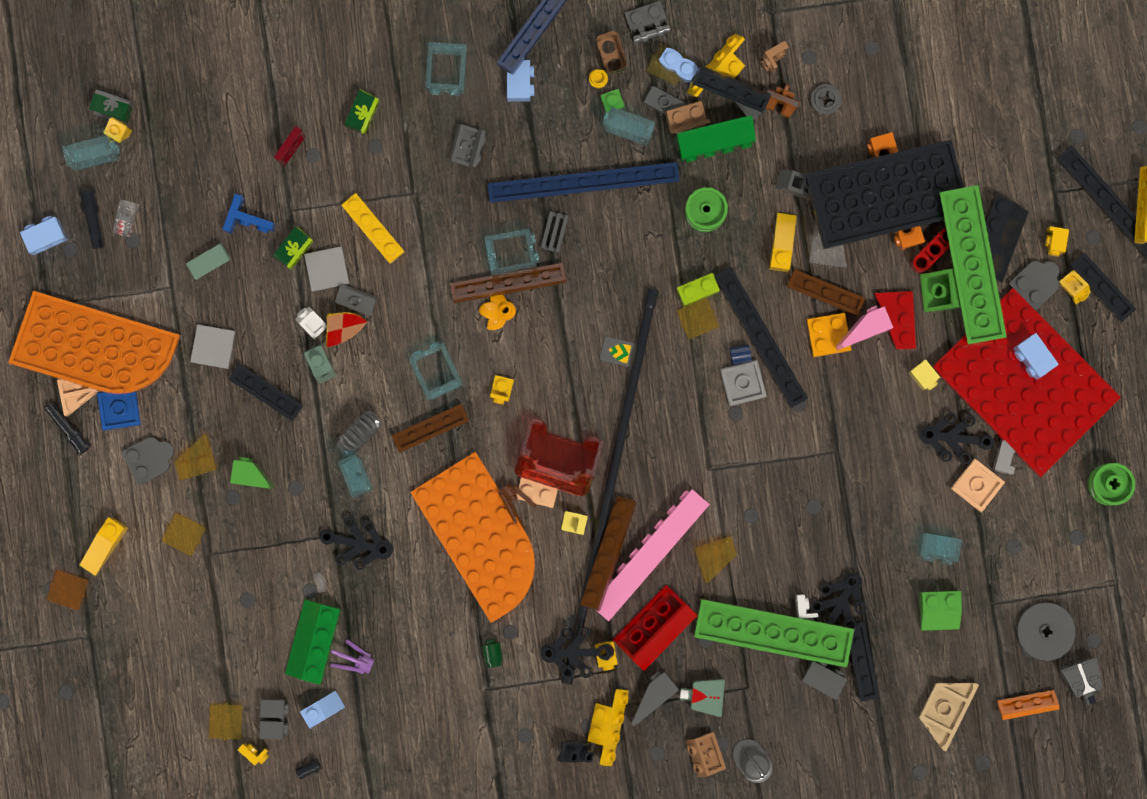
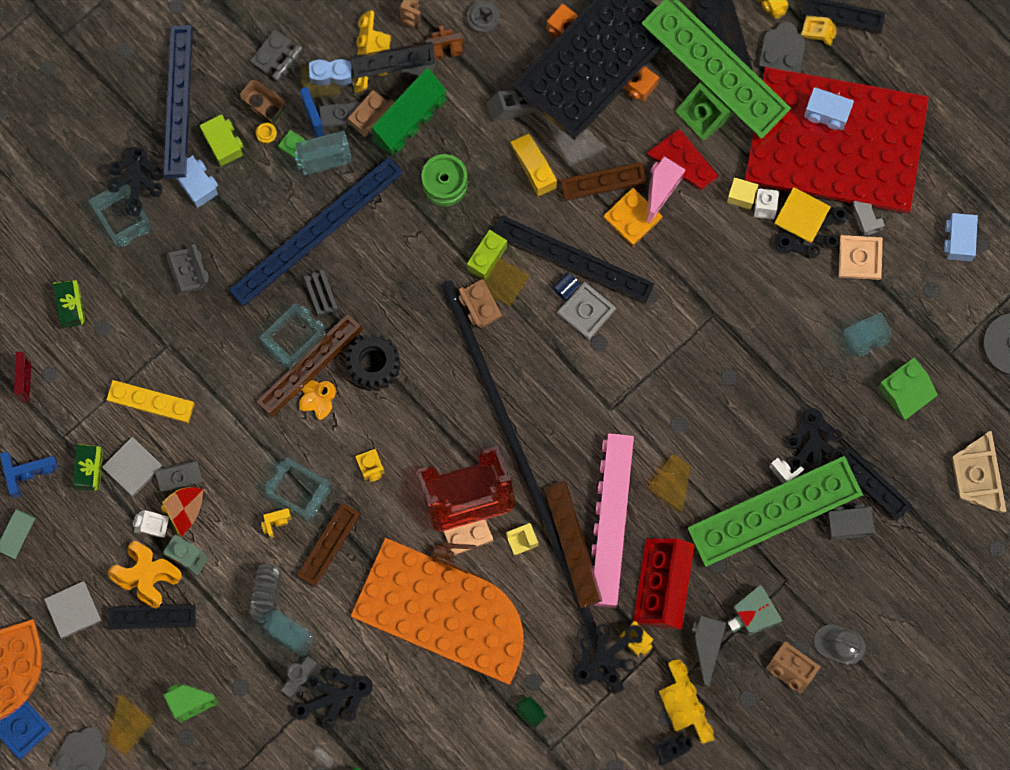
camera: 35 degrees left, 10 degrees down
(281, 357) = (144, 574): none -> light orange piece
(342, 511) = (298, 675): none -> flat silver bar
(407, 384) = (276, 518): none -> yellow bracket
(476, 48) = (136, 177): none -> black plant
(544, 301) = (373, 345): none -> black tyre
(560, 61) = (221, 140): none -> lime brick
(618, 351) = (453, 360): dark grey sticker -> none
(642, 88) = (312, 112): none -> blue tile
(666, 323) = (480, 303): none -> medium nougat bracket
(927, 256) = (668, 89): red beam -> none
(936, 395) = (766, 204): none -> white bracket
(957, 423) = (802, 215): none -> yellow slope
(1065, 523) = (961, 237): none -> light blue brick
(1122, 481) = (976, 175): bright green wheel -> none

